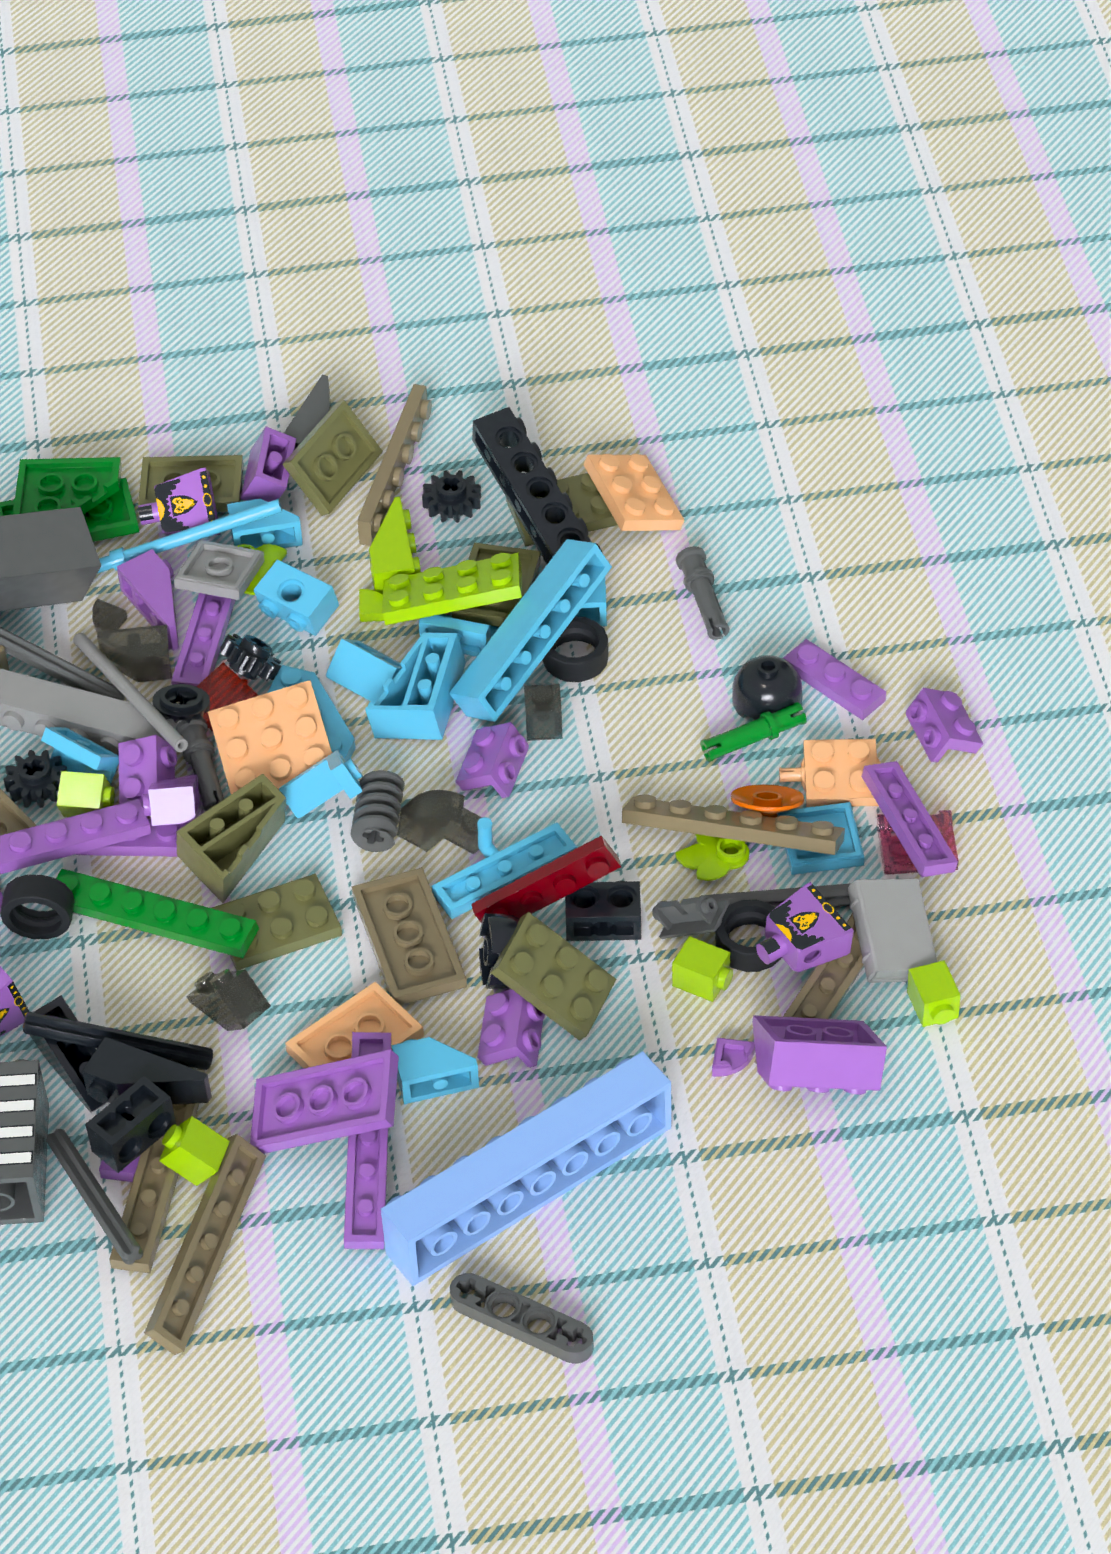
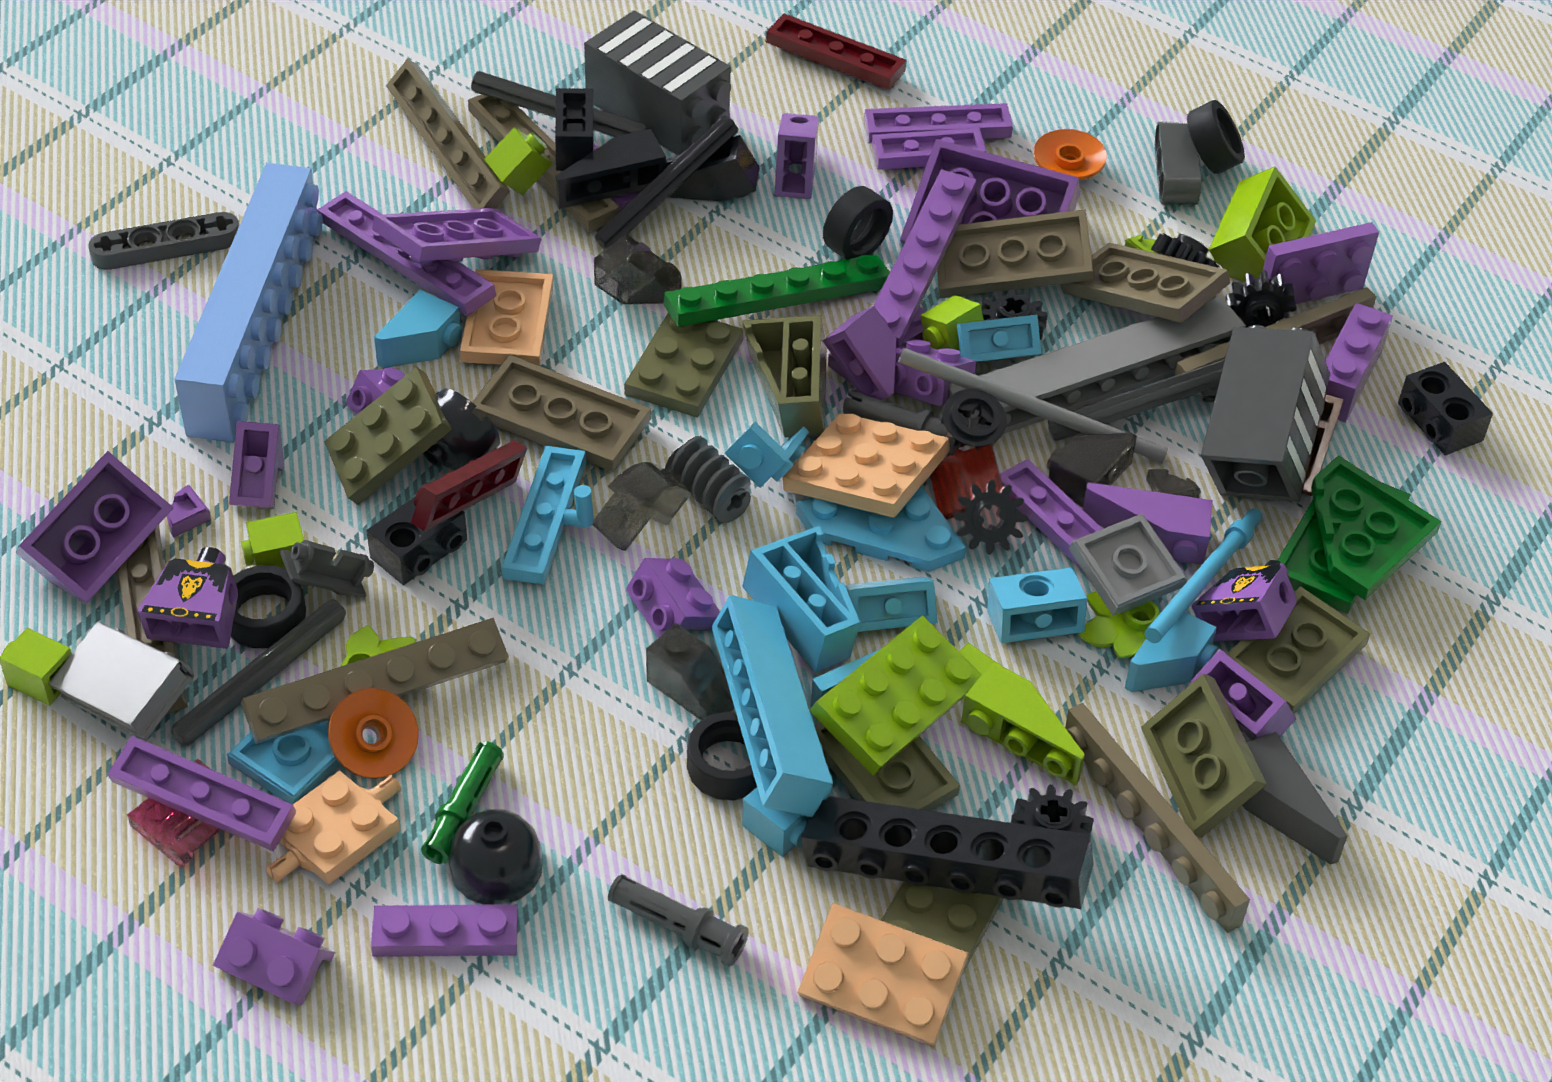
camera: 130 degrees right, 0 degrees up
(657, 1031) = (256, 464): none -> medium lavender slope

